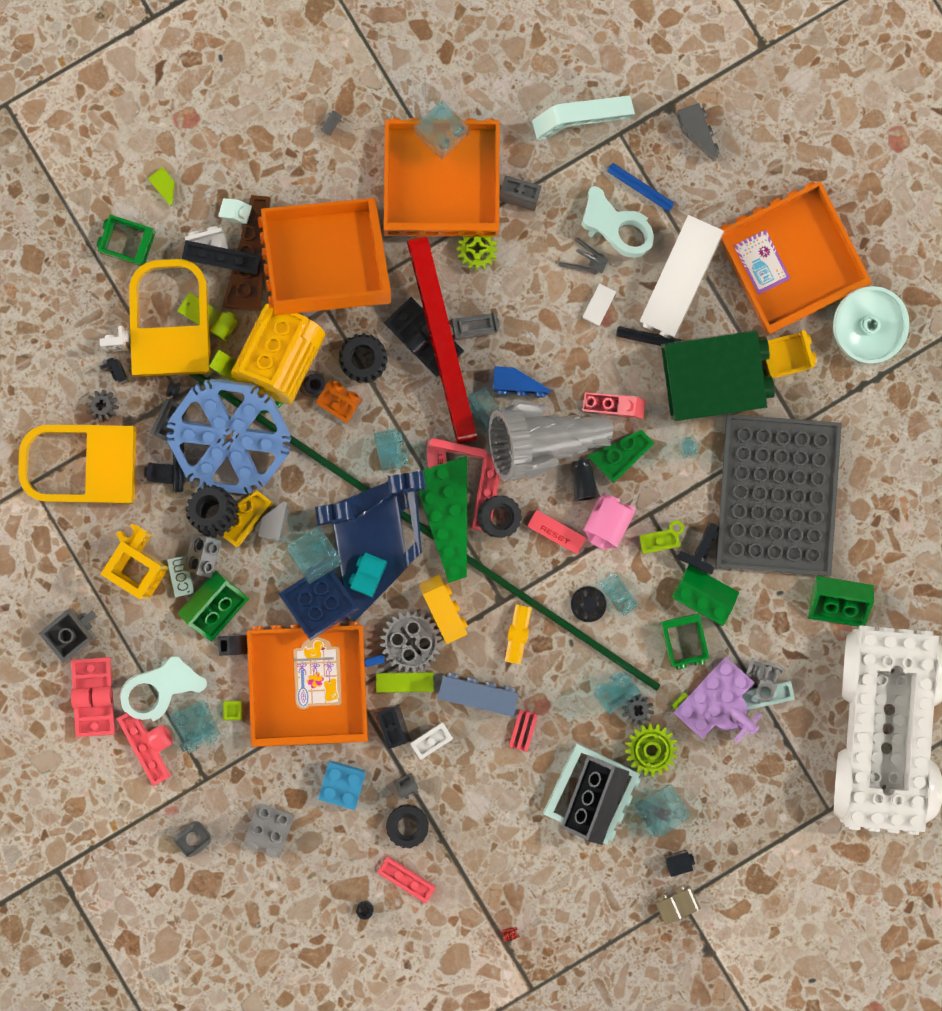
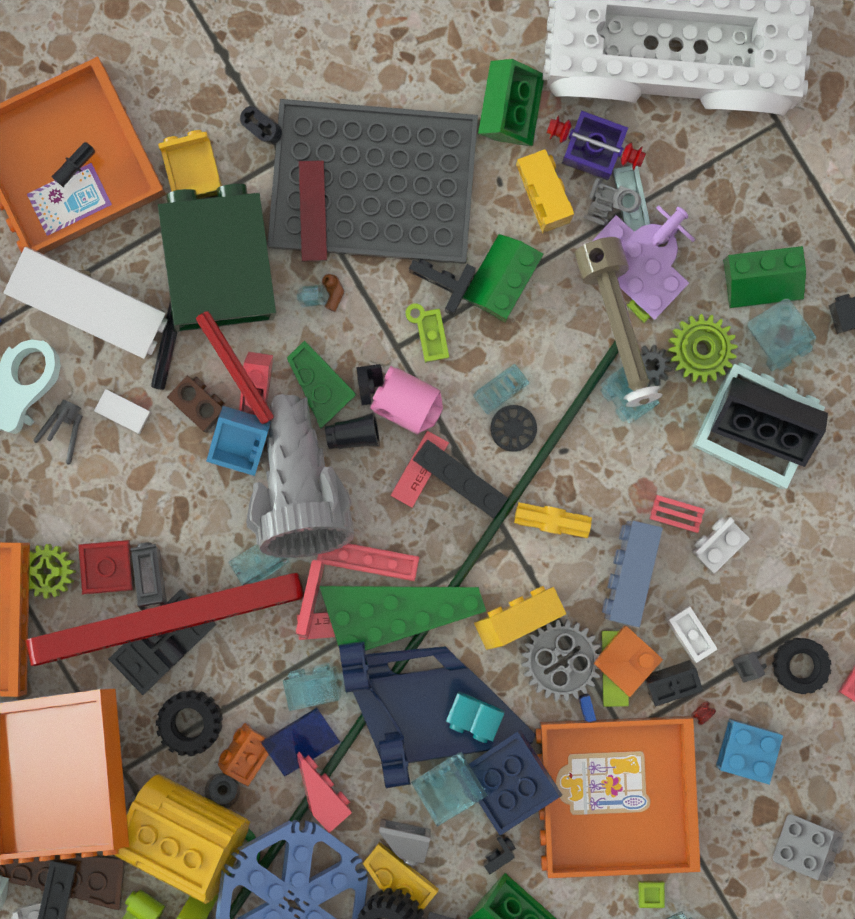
camera: 90 degrees left, 0 degrees up
(232, 645) = (566, 896): black brick -> none
(260, 592) = (497, 858): none -> black bracket
(304, 459) = (322, 800): none -> coral slope
(348, 442) = (307, 735): none -> clear blue piece
(371, 750) = (703, 713): none -> clear red bush
(410, 691) = (627, 661): none -> orange plate
(480, 293) = (106, 567): none -> red plate
(499, 763) = (720, 544): none -> white bracket
(512, 380) = (220, 526): blue slope -> none
(512, 523) = (404, 525): black tyre -> none
(549, 563) = (460, 478): none -> black plate
(577, 393) = (238, 441): none -> dark azure piece
(602, 358) = (193, 407): none -> reddish brown brick
(625, 491) = (368, 378): none -> black bracket
(633, 390) = (234, 367): none -> red axle
(693, 466) = (334, 290): none -> dark orange arm
(697, 660) = (536, 309): green window -> none
(707, 799) = (765, 276): none -> green slope
(715, 670) = (602, 264): none -> dark tan piece
(754, 448) = (312, 211): none -> dark red tile
(772, 627) = (545, 190): none -> yellow wedge
(788, 266) = (73, 164): none -> black axle
(808, 665) = (595, 144): none -> dark purple brick
(817, 406) = (263, 121): none -> black beam
(871, 324) = (152, 58): light aqua dish -> none

